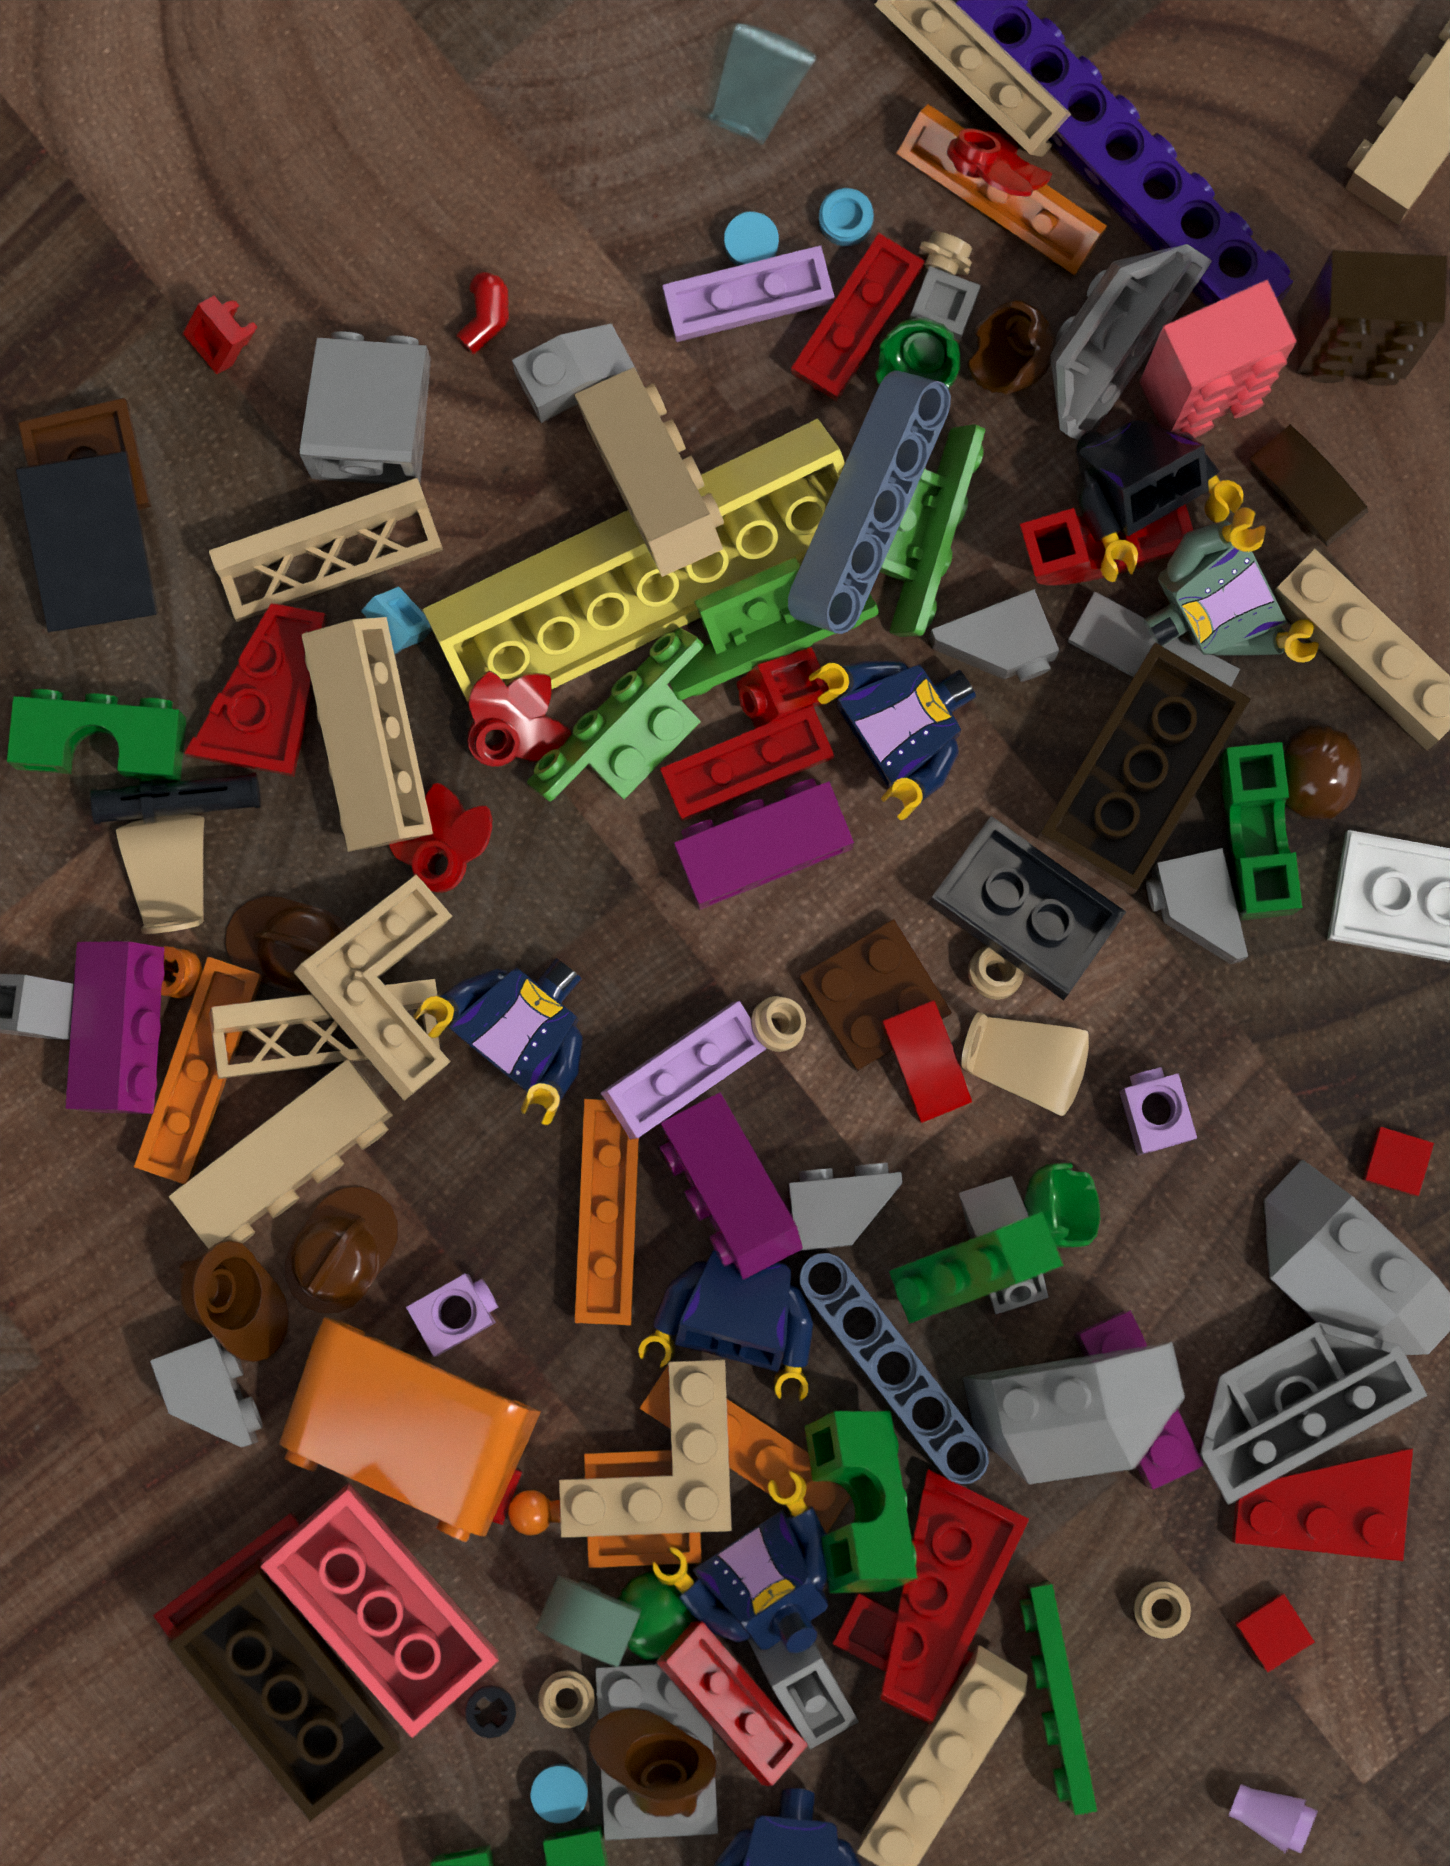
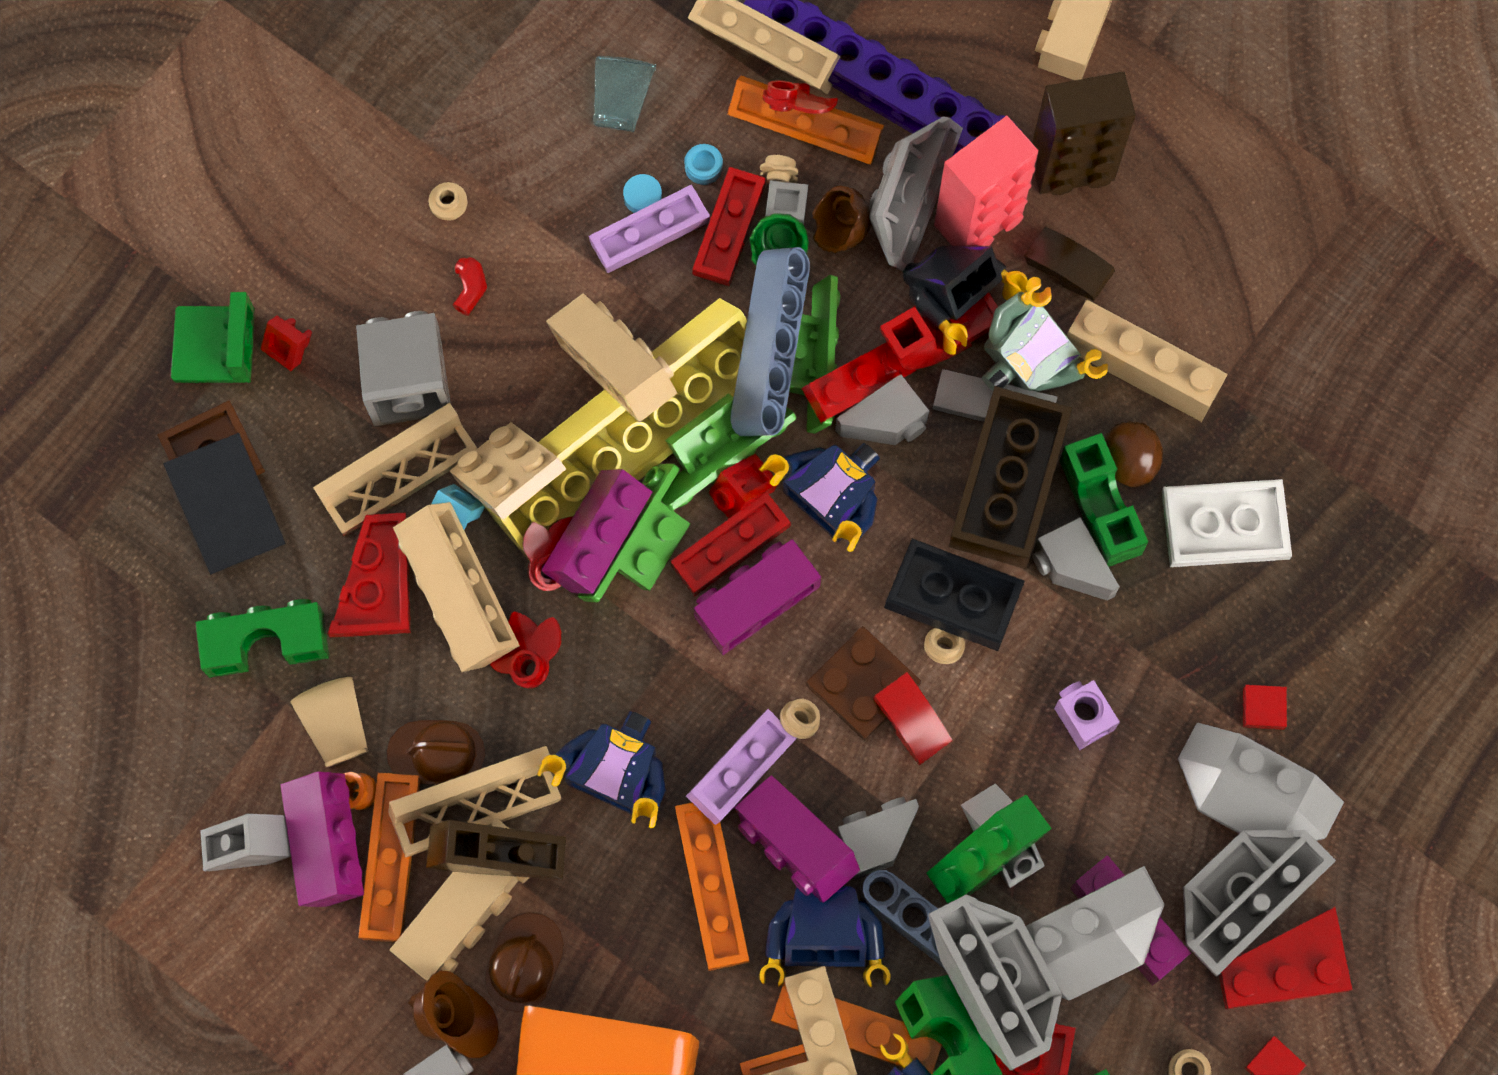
camera: 15 degrees left, 10 degrees down
(122, 309) = (214, 342): none -> green bracket
(174, 798) = (327, 668): black pin -> none
(335, 1105) = (495, 851): none -> dark brown slope
(348, 986) = (484, 758): tan plate -> none
(428, 1318) = (611, 1003): lavender brick -> none
(471, 593) = (507, 470): none -> tan plate
(488, 200) = (448, 211): none -> tan plate
(569, 365) = (533, 304): light grey slope -> none
(571, 706) = (597, 531): none -> magenta brick
(943, 1439) = (998, 977): none -> light grey wedge
(966, 584) = (853, 382): none -> red plate
(1028, 1059) = (984, 700): tan piece -> none
(1067, 1203) = (1041, 789): green hair -> none

